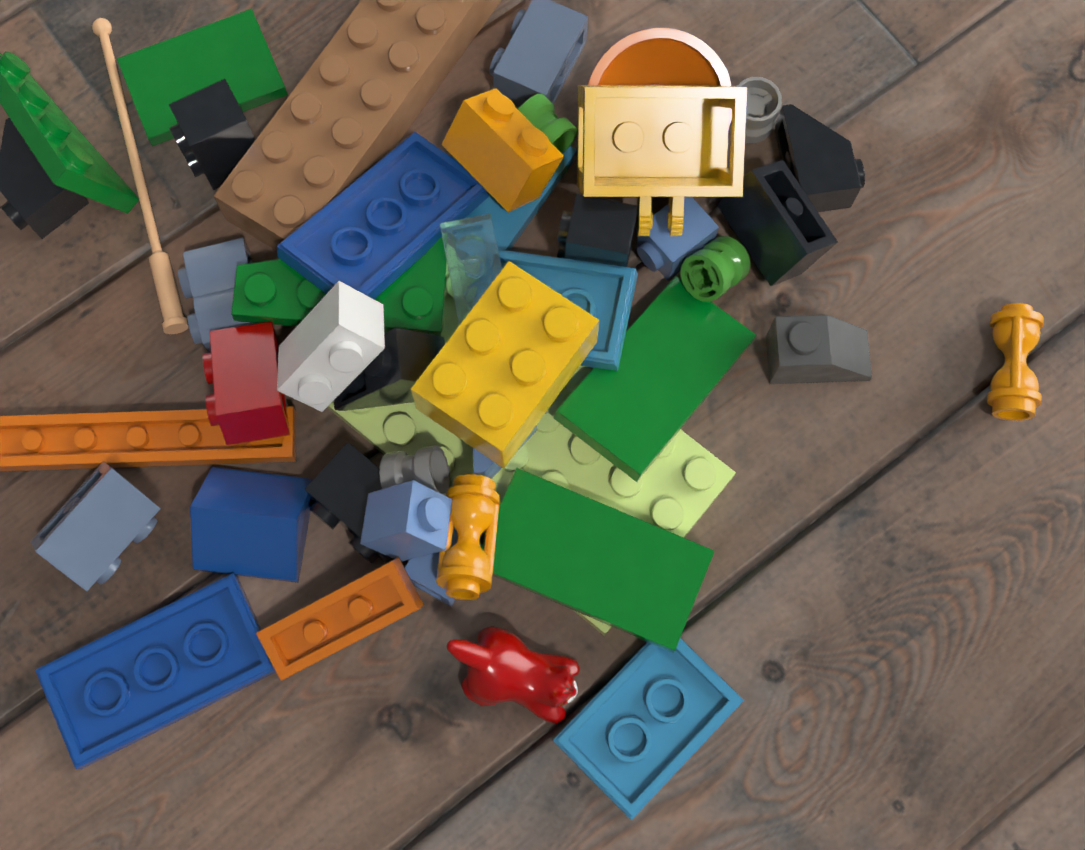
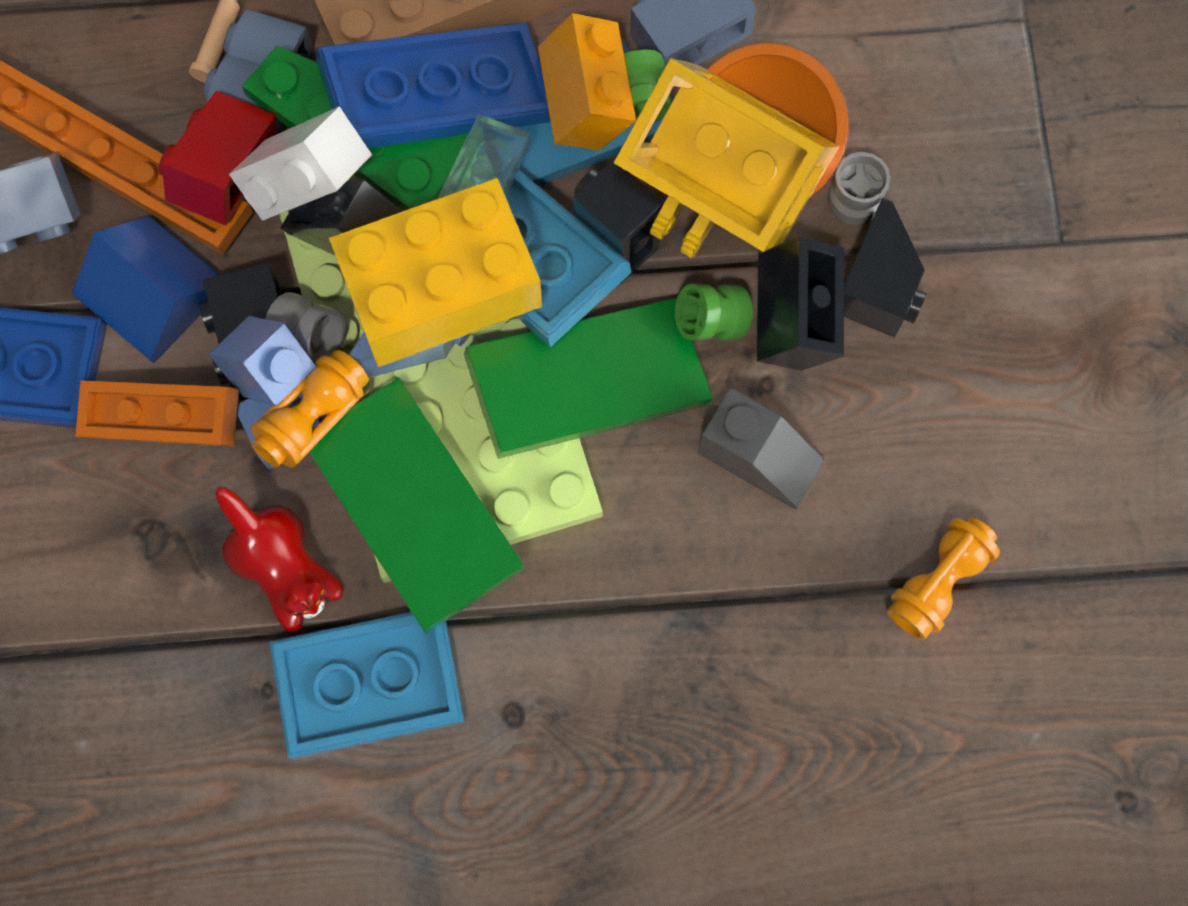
camera: 35 degrees right, 0 degrees up
(669, 252) = (713, 264): medium blue brick -> none

